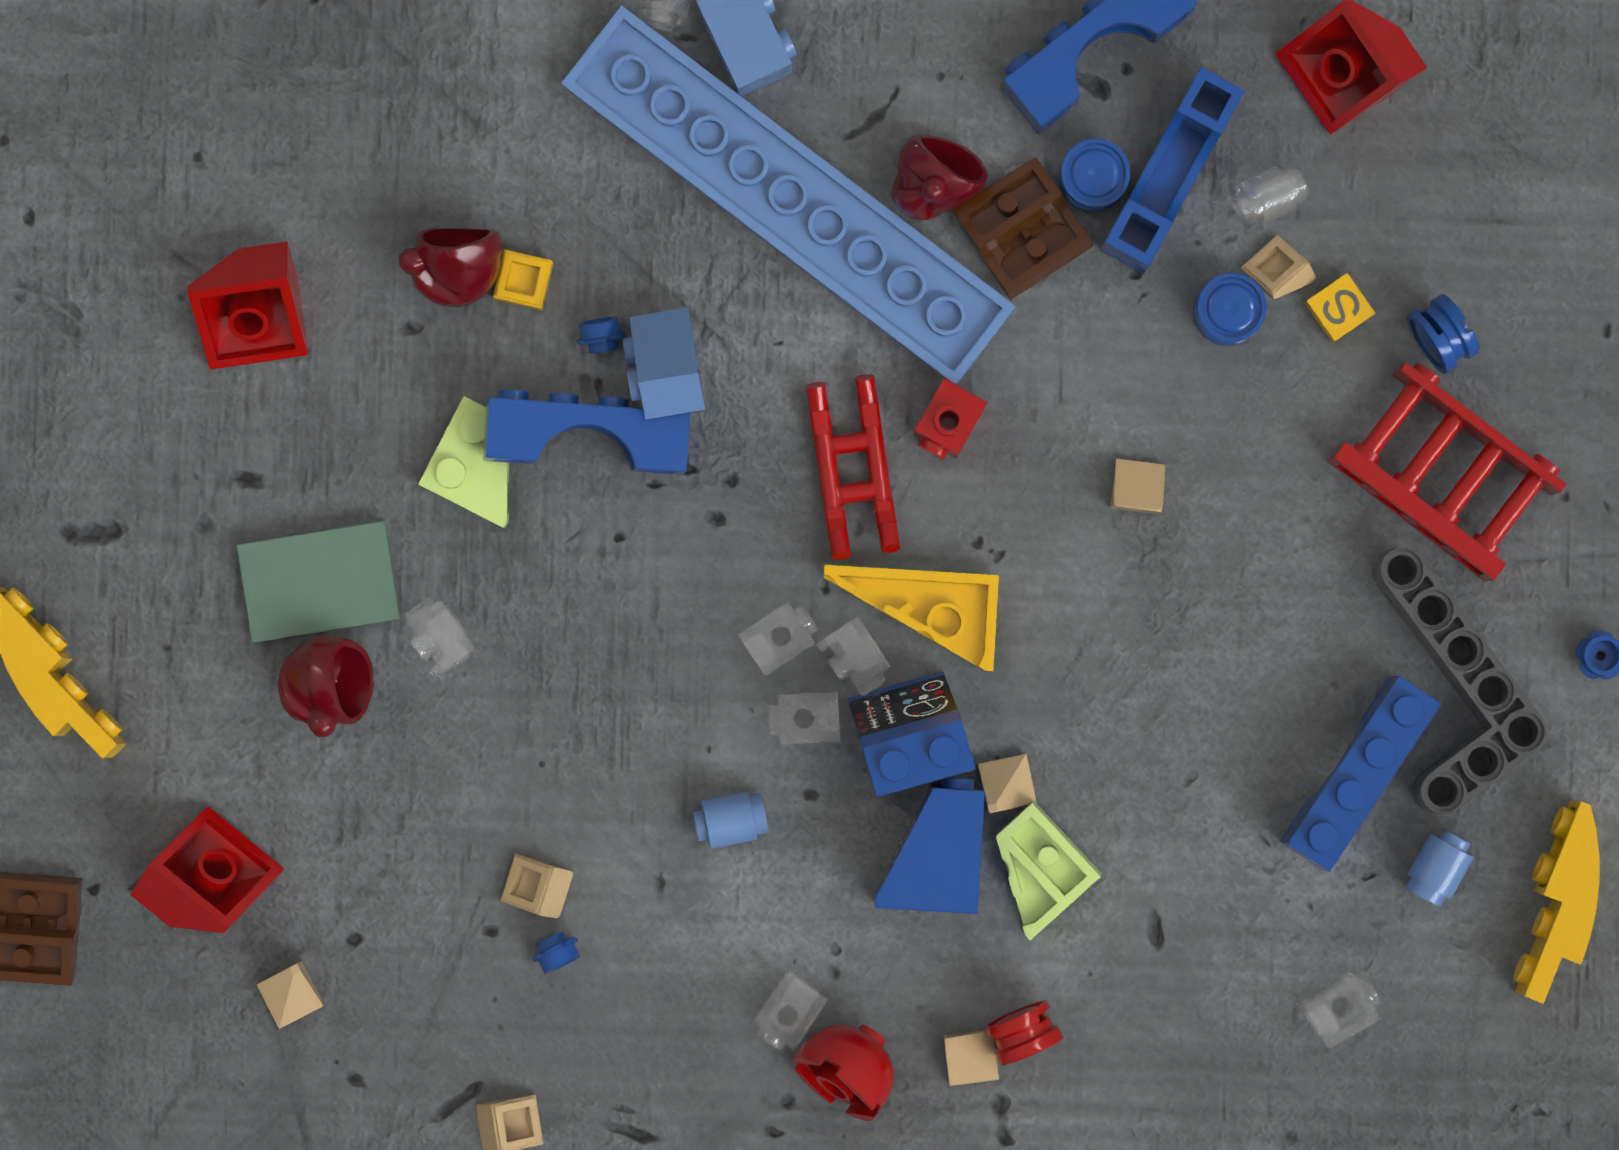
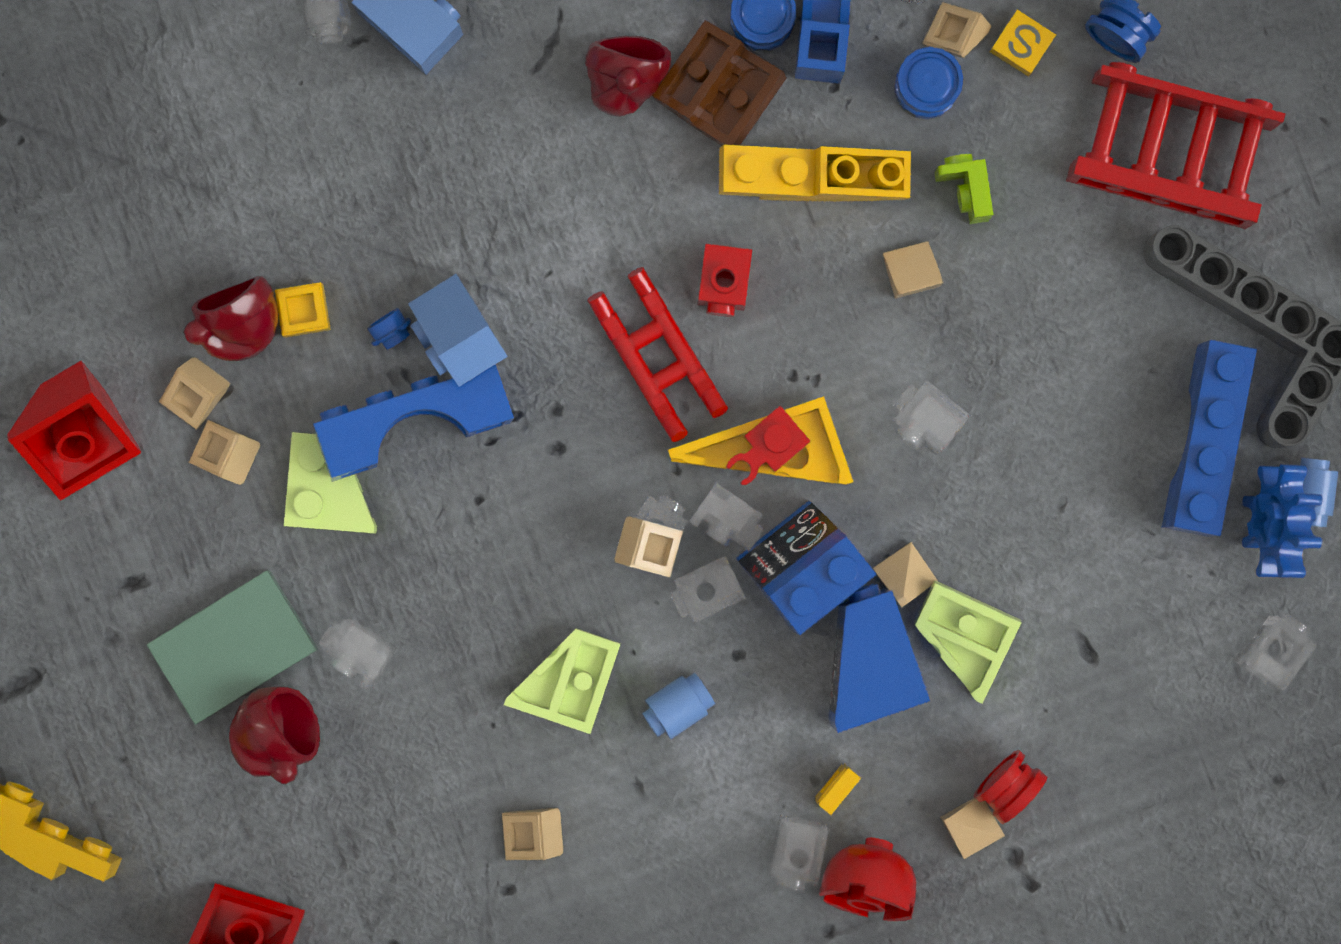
camera: 25 degrees left, 0 degrees up
(384, 317) = (194, 392): none -> tan slope
(389, 388) = (225, 452): none -> tan slope
(556, 952) = (573, 885): blue plate -> none
(634, 752) = (569, 682): none -> yellowish green wing
(765, 651) = (648, 546): none -> tan slope
(788, 196) = (499, 141): medium blue plate -> none
(853, 964) = (837, 788): none -> yellow tile
(930, 599) = (772, 442): none -> red plate
(1080, 353) = (814, 173): none -> yellow slope
(1092, 638) = (928, 417): none -> clear brick
(1229, 437) = (975, 192): none -> lime bracket
(1395, 882) = (1282, 521): none -> blue gear

